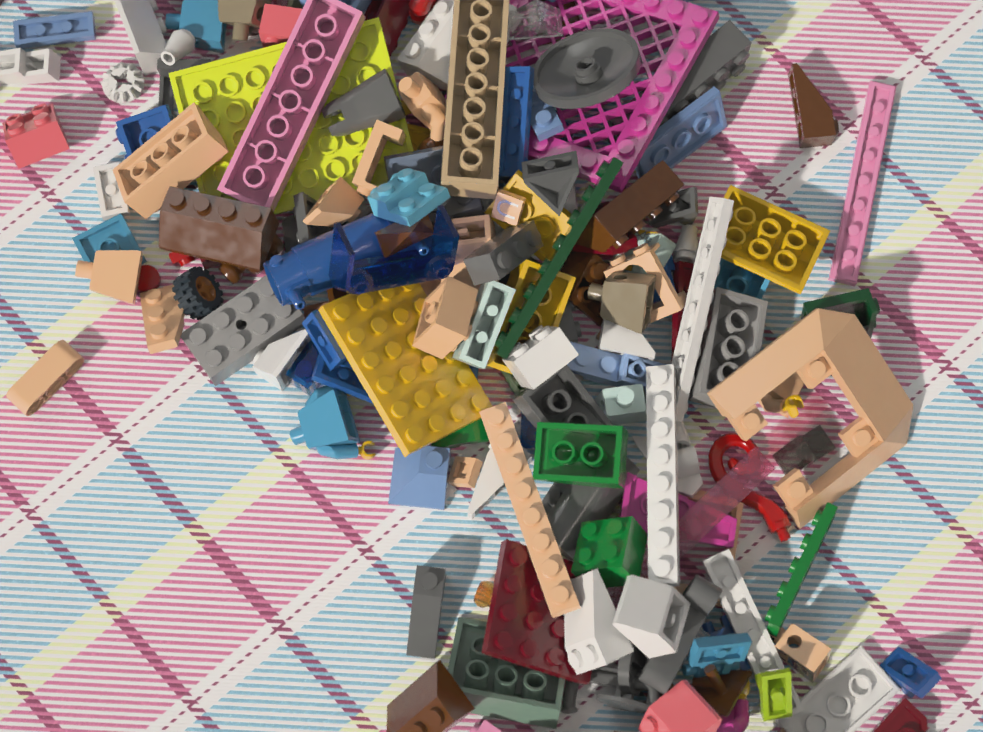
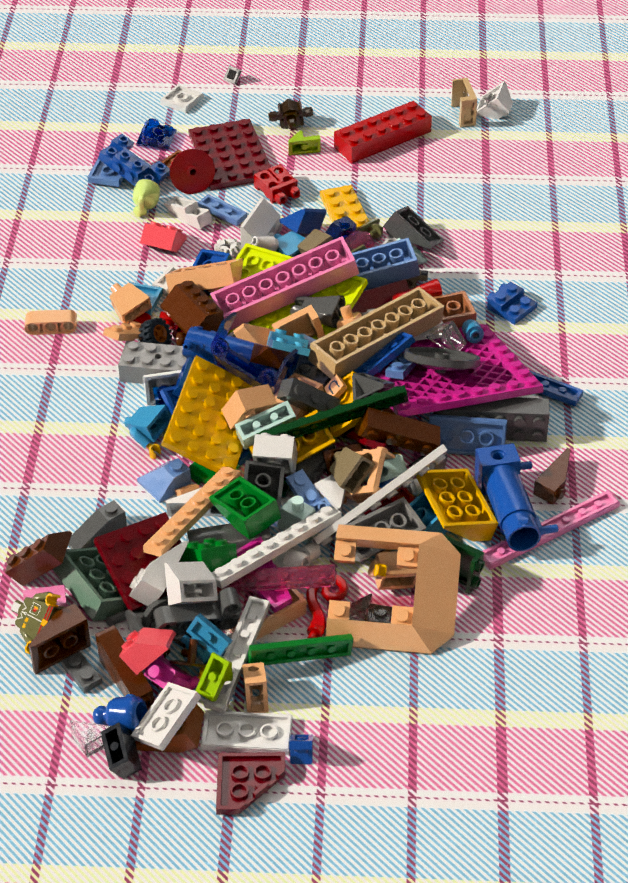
camera: 45 degrees right, 30 degrees down
(768, 165) = (499, 478): none -> blue piece

